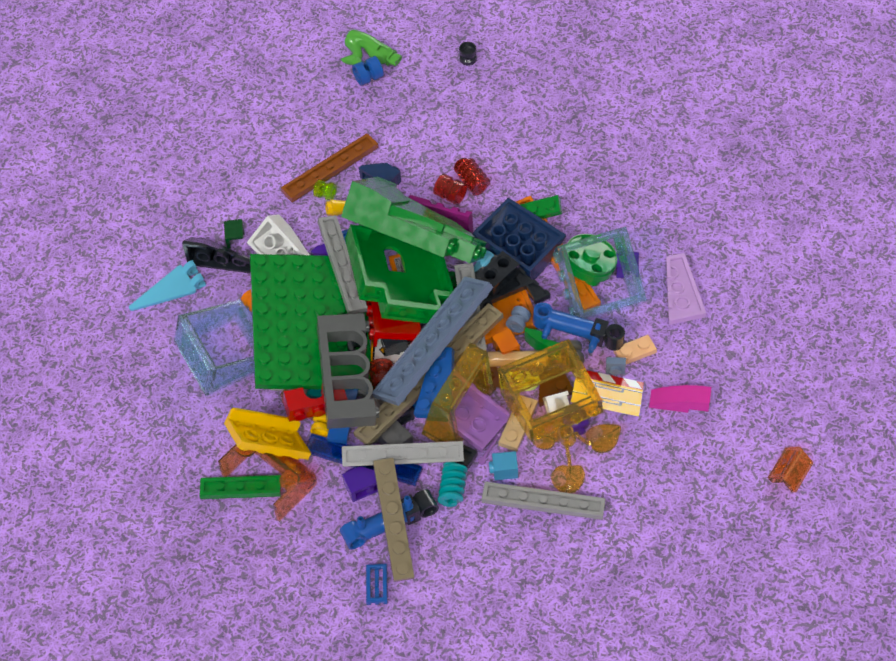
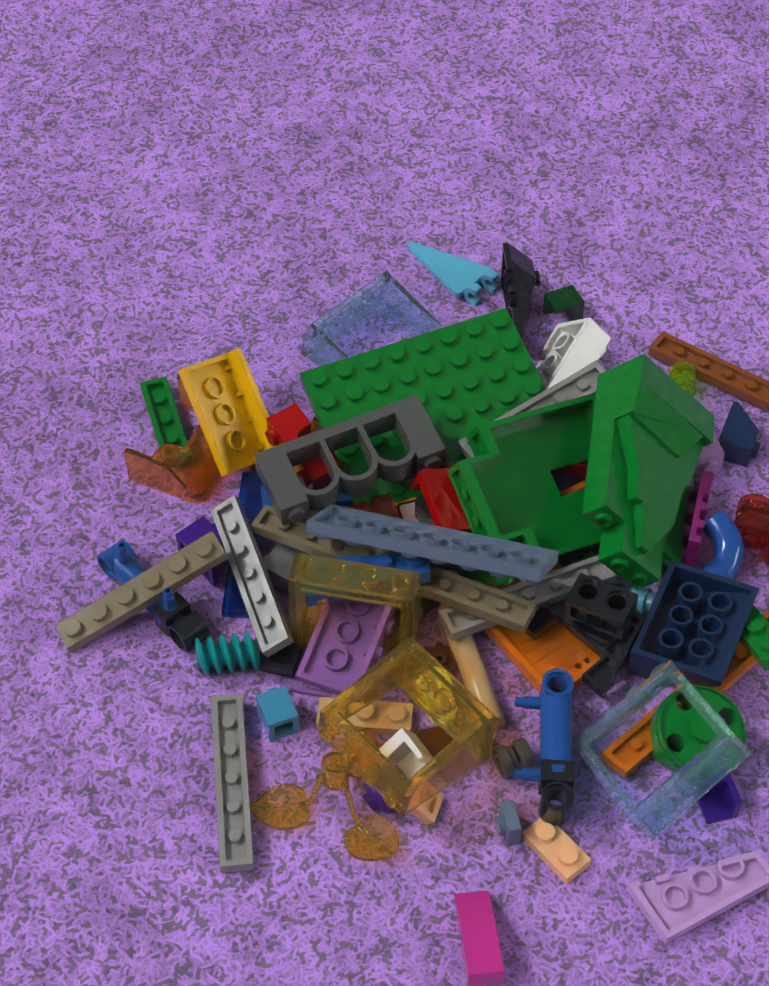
camera: 70 degrees right, 5 degrees down
(377, 599) = (51, 613): blue tile -> none
(468, 203) = (727, 546): none -> blue cylinder
(505, 342) = (497, 661): orange panel -> none
(518, 319) = (536, 659): sand blue wheel -> none
(534, 339) = (513, 713): green slope -> none
(616, 393) = (457, 830): yellow sticker -> none

